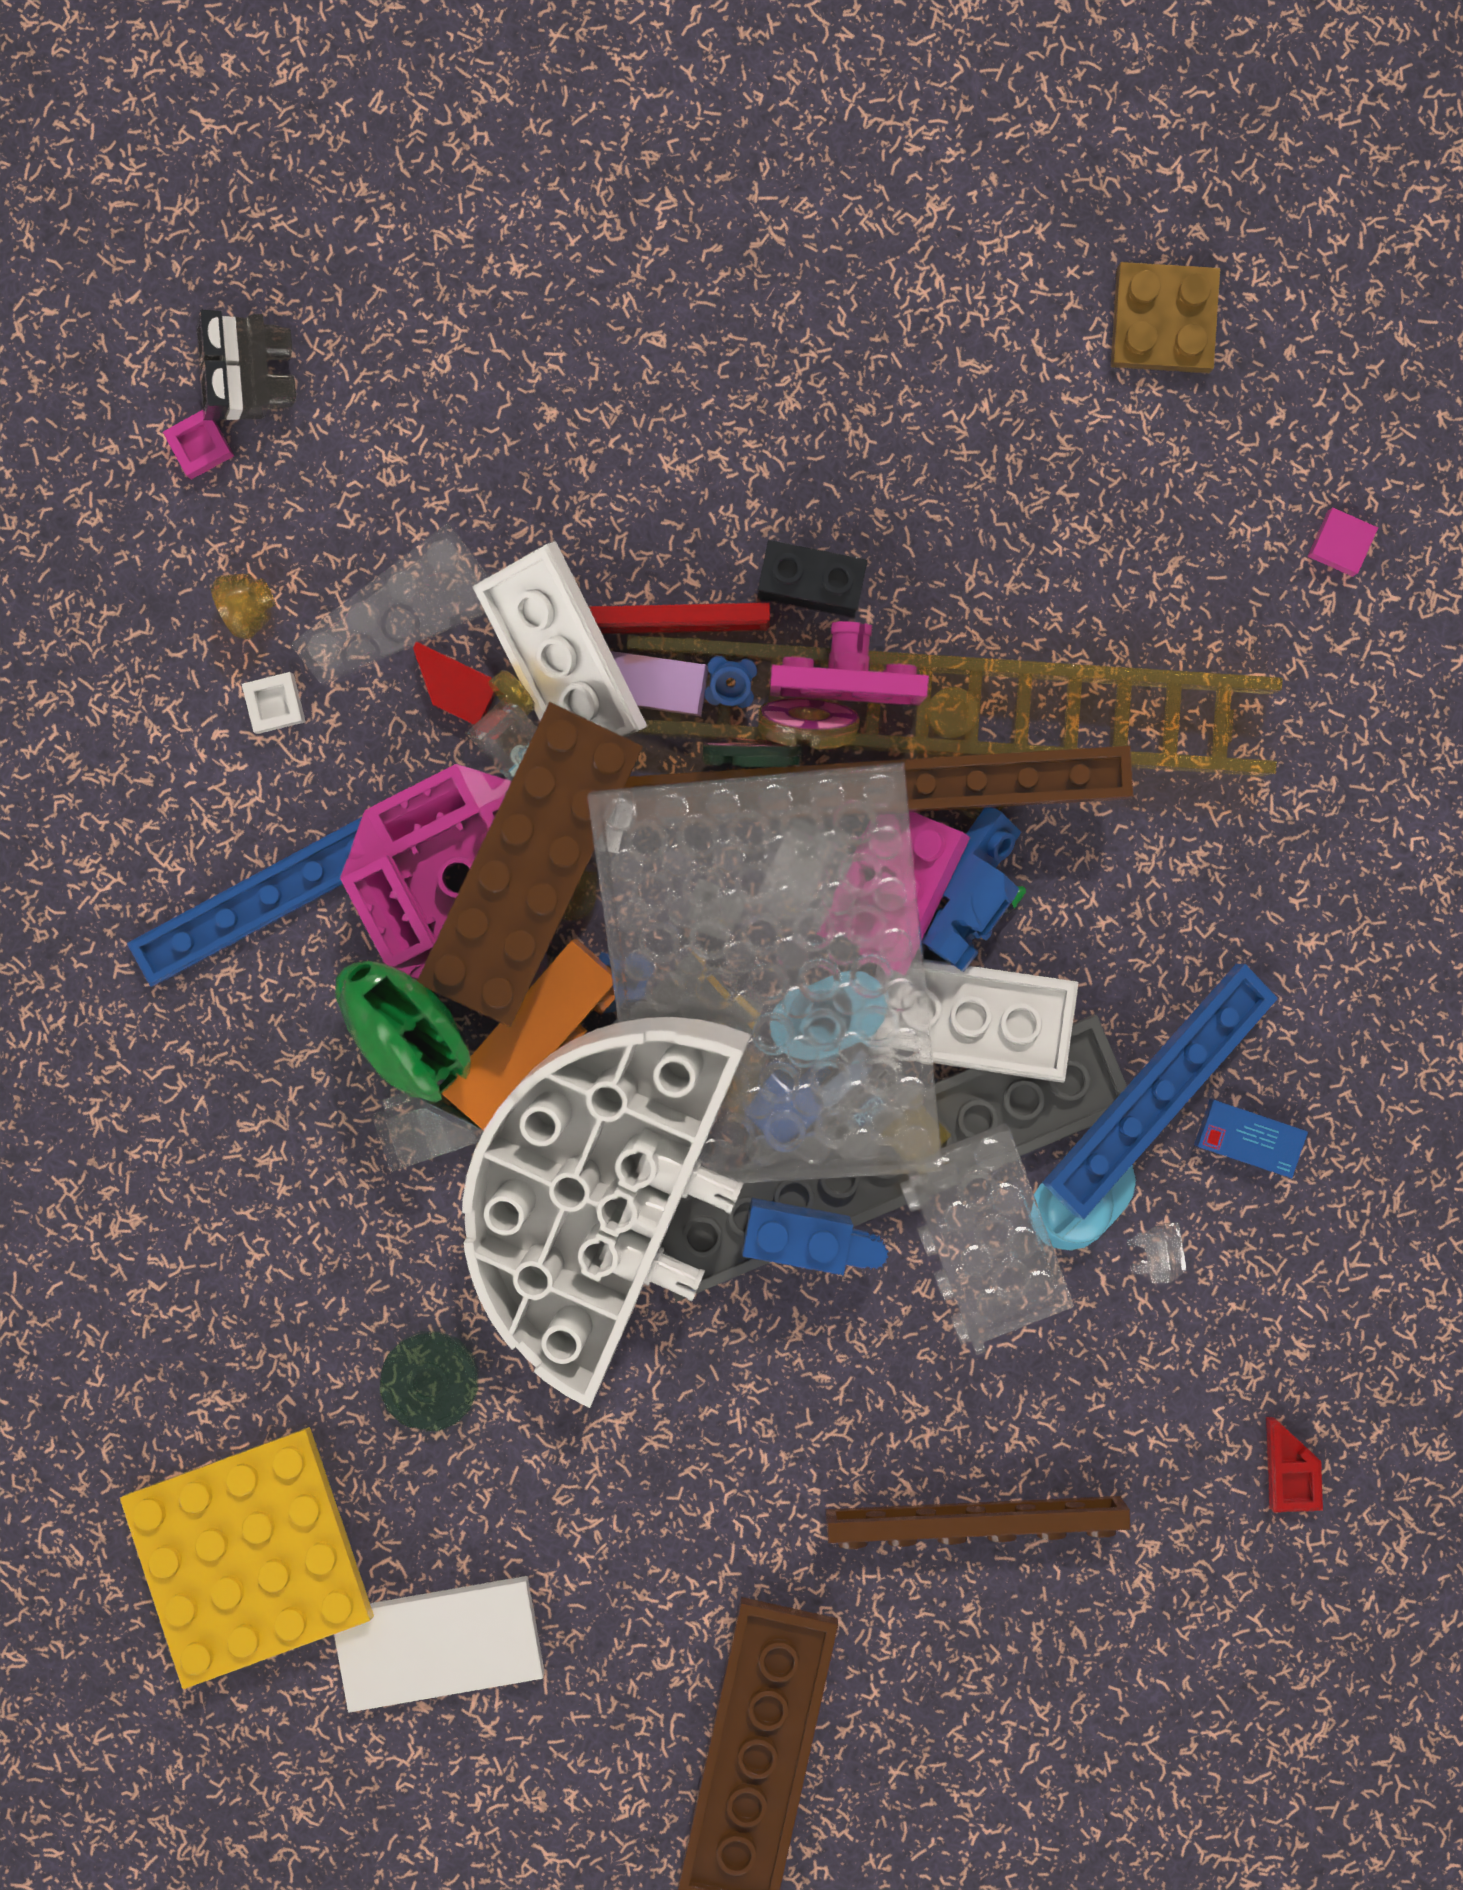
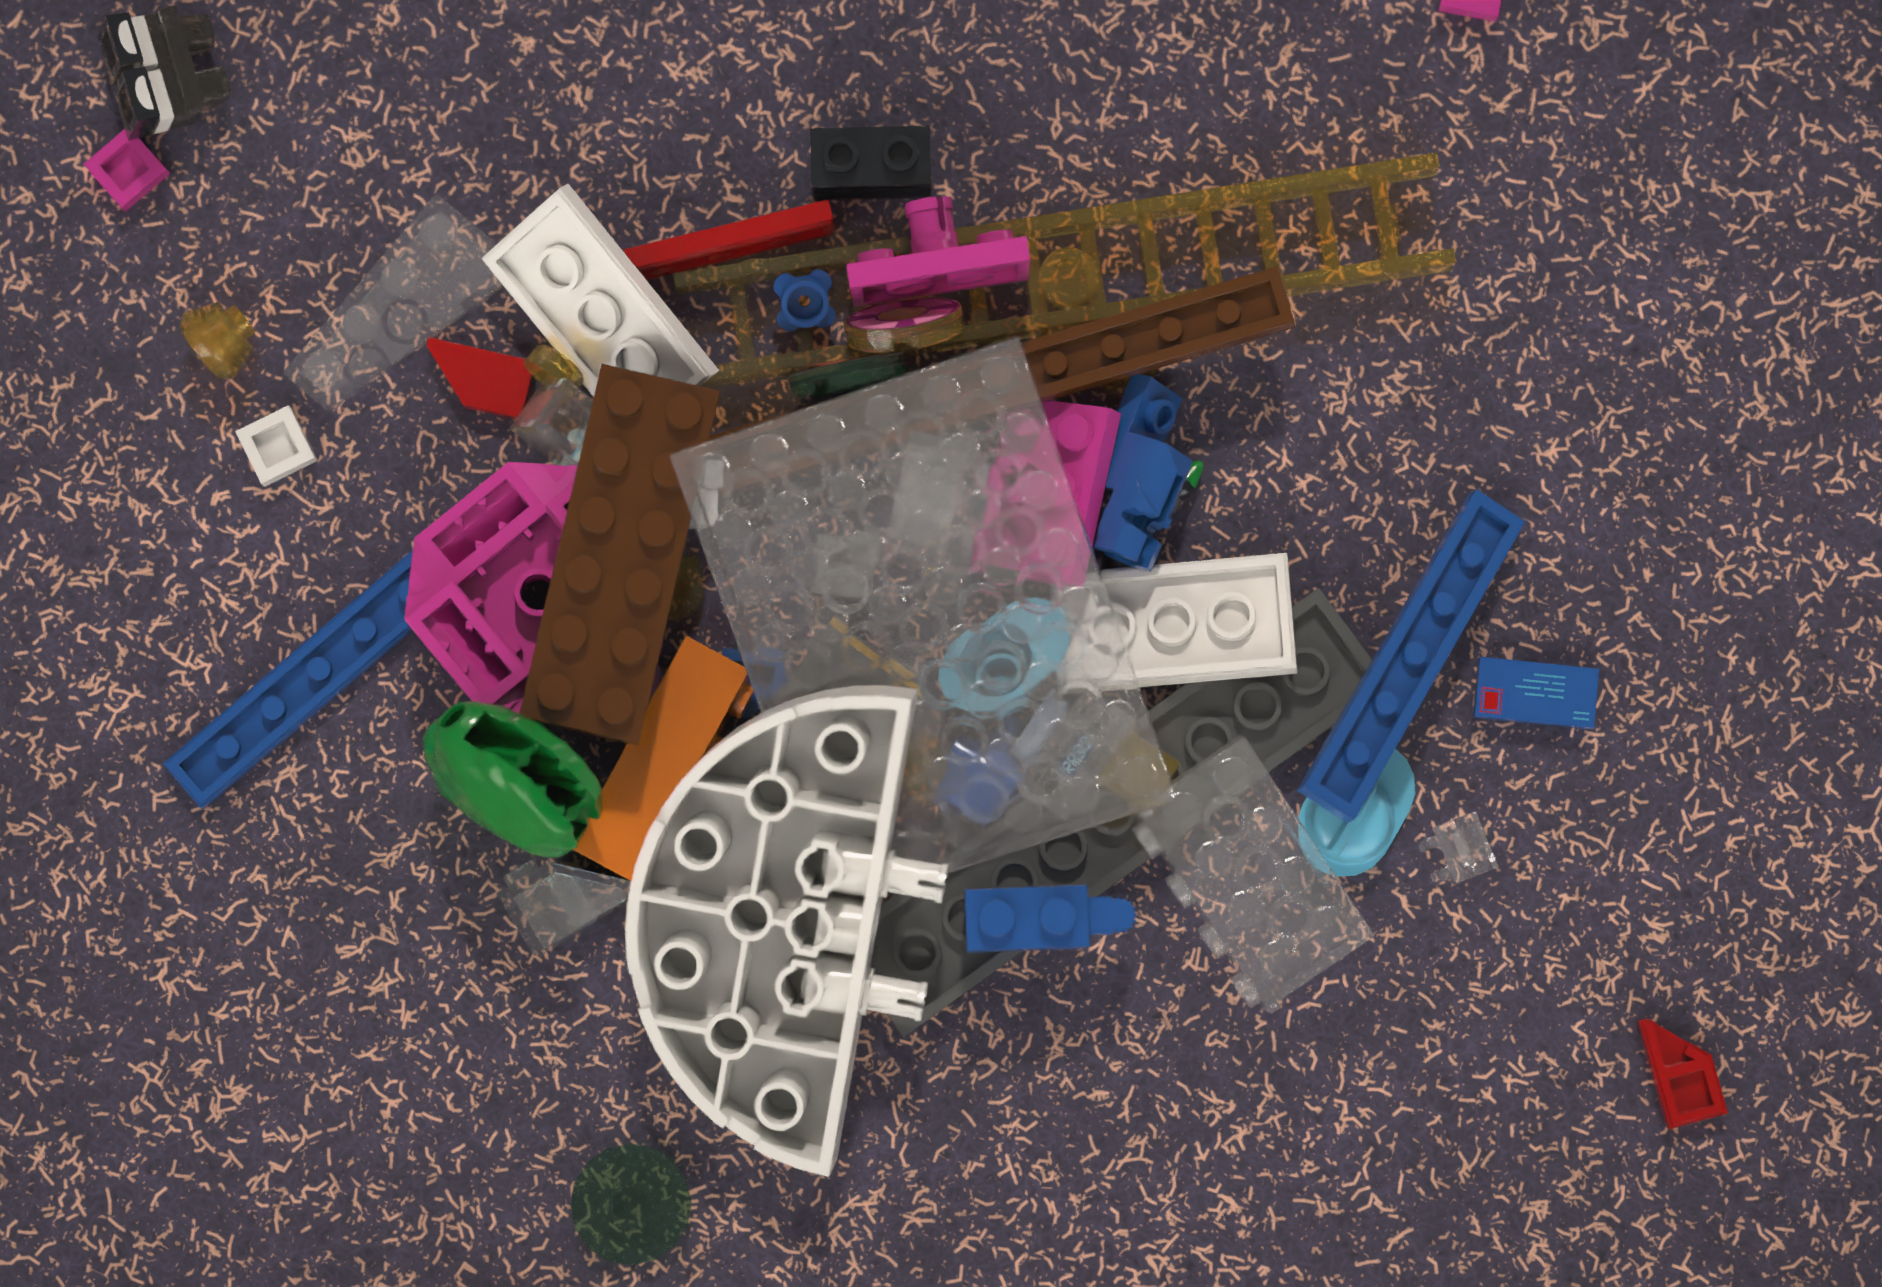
camera: 10 degrees left, 5 degrees down
(664, 683) = (729, 319): lavender tile -> none
(997, 1520) = (1346, 1213): reddish brown plate -> none

